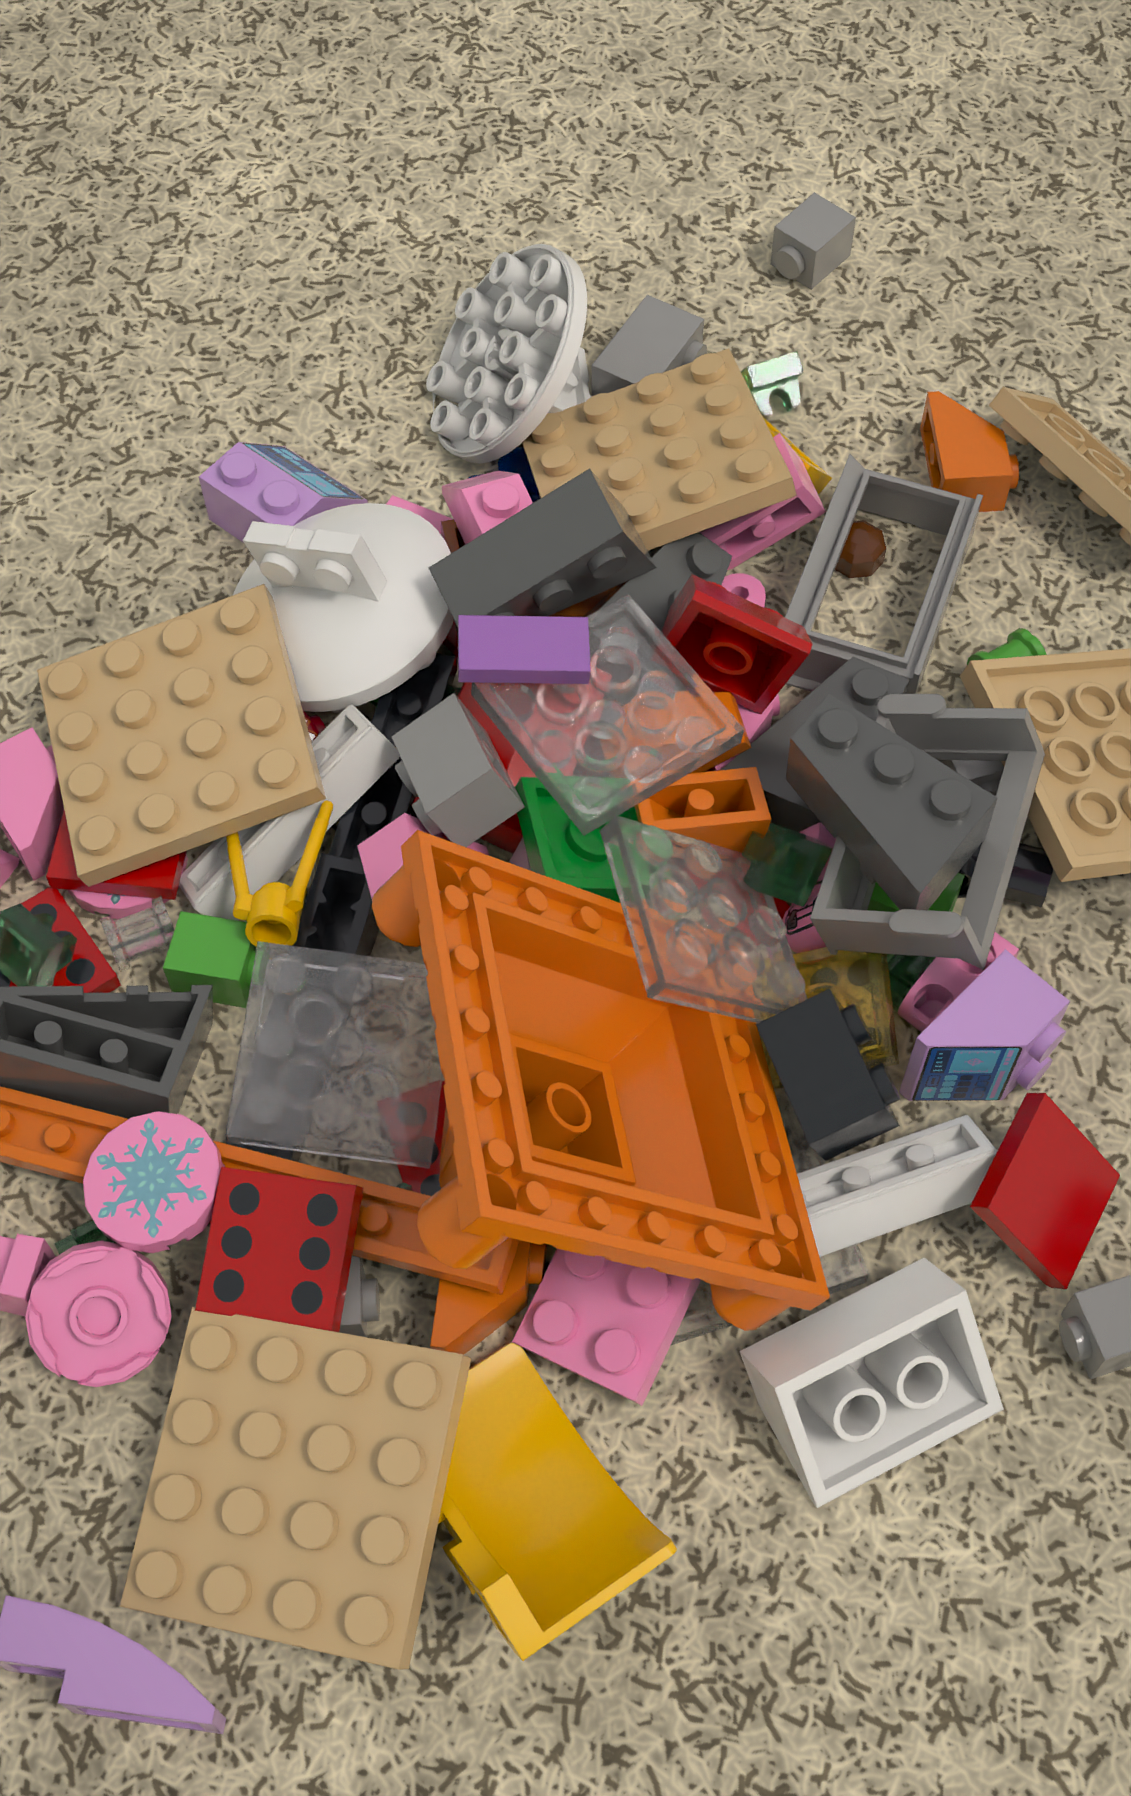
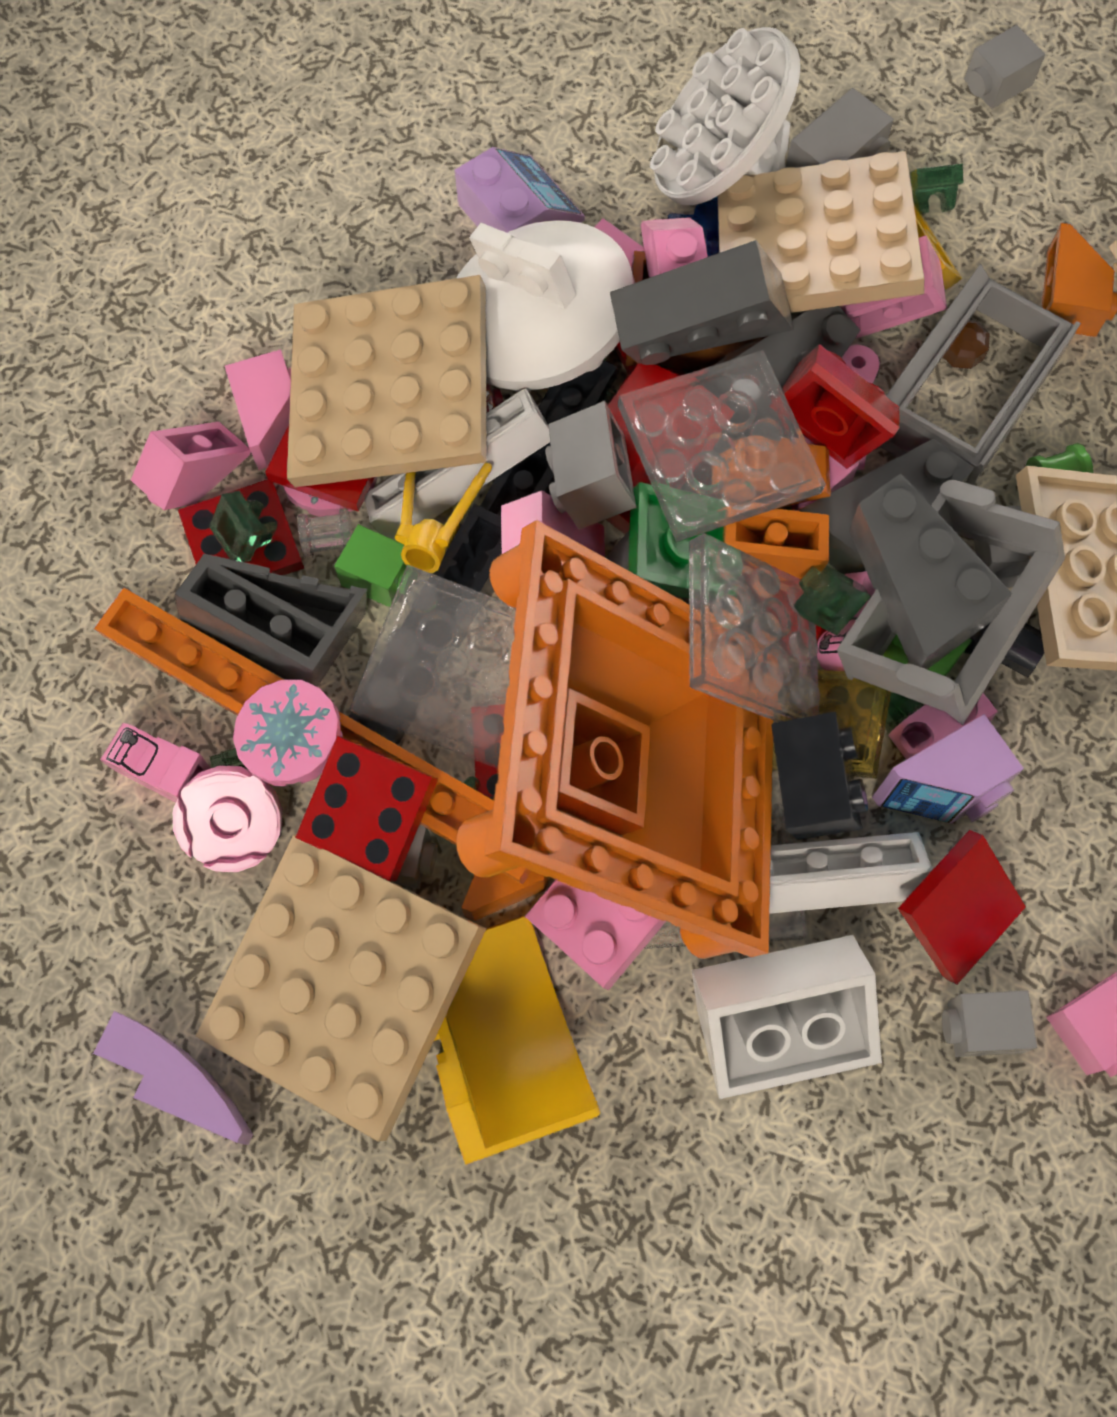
camera: 15 degrees right, 10 degrees up
(523, 649) = (666, 379): medium lavender tile -> none

